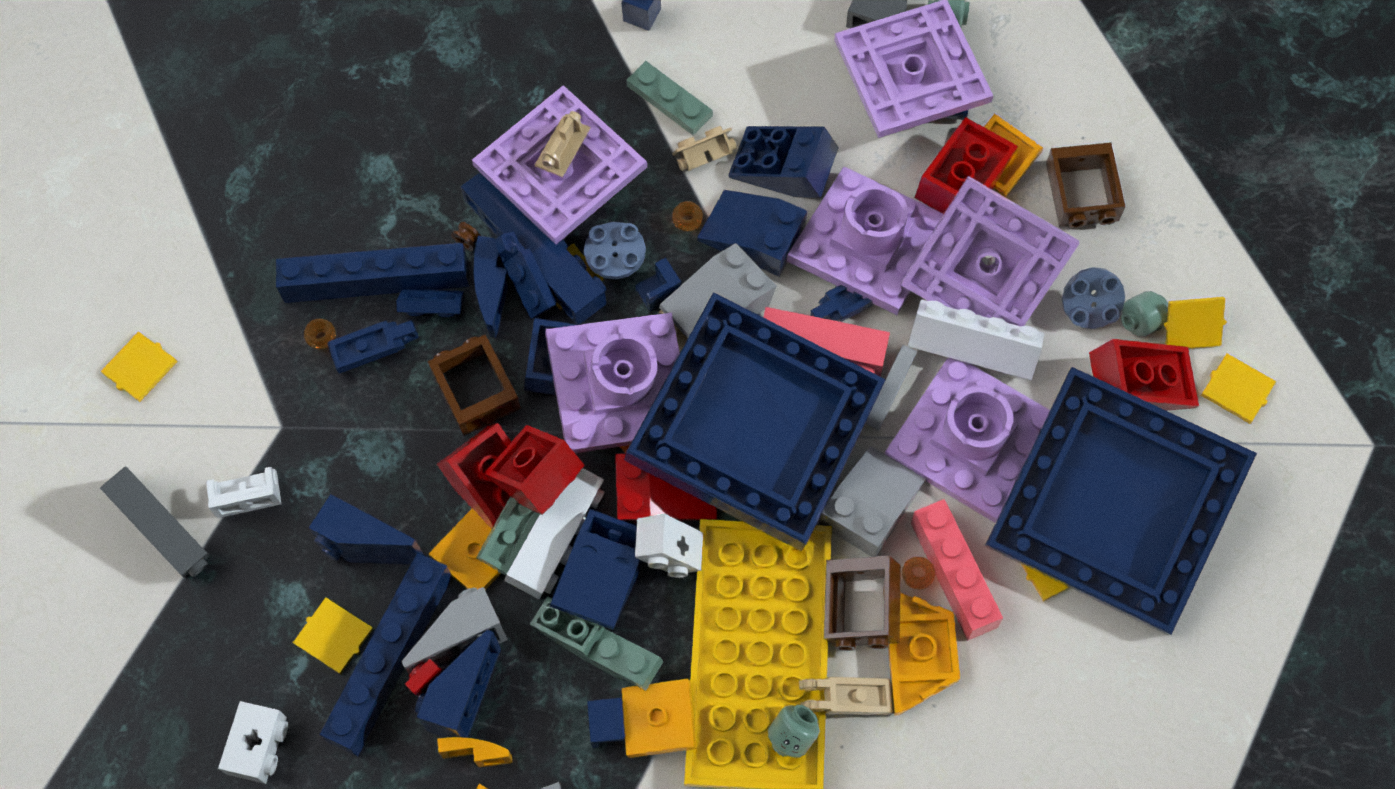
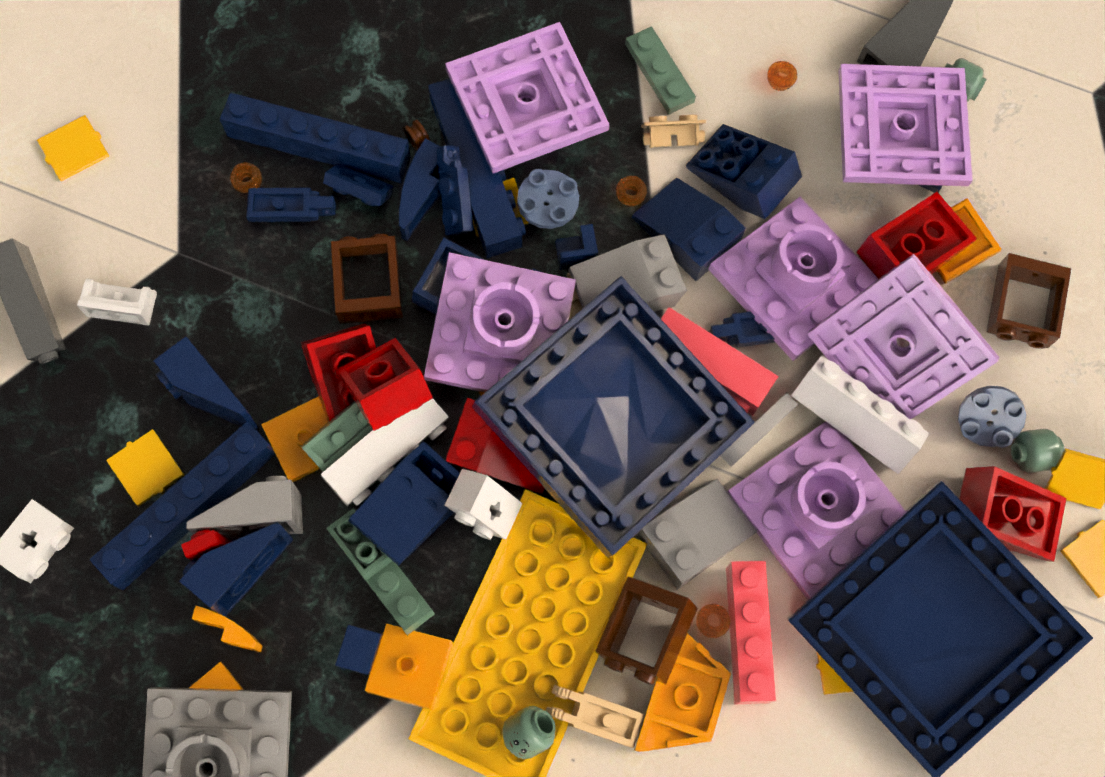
camera: 15 degrees right, 5 degrees up
(563, 144) = (535, 80): tan hinge -> none
(783, 70) = (781, 82): none -> clear orange plate

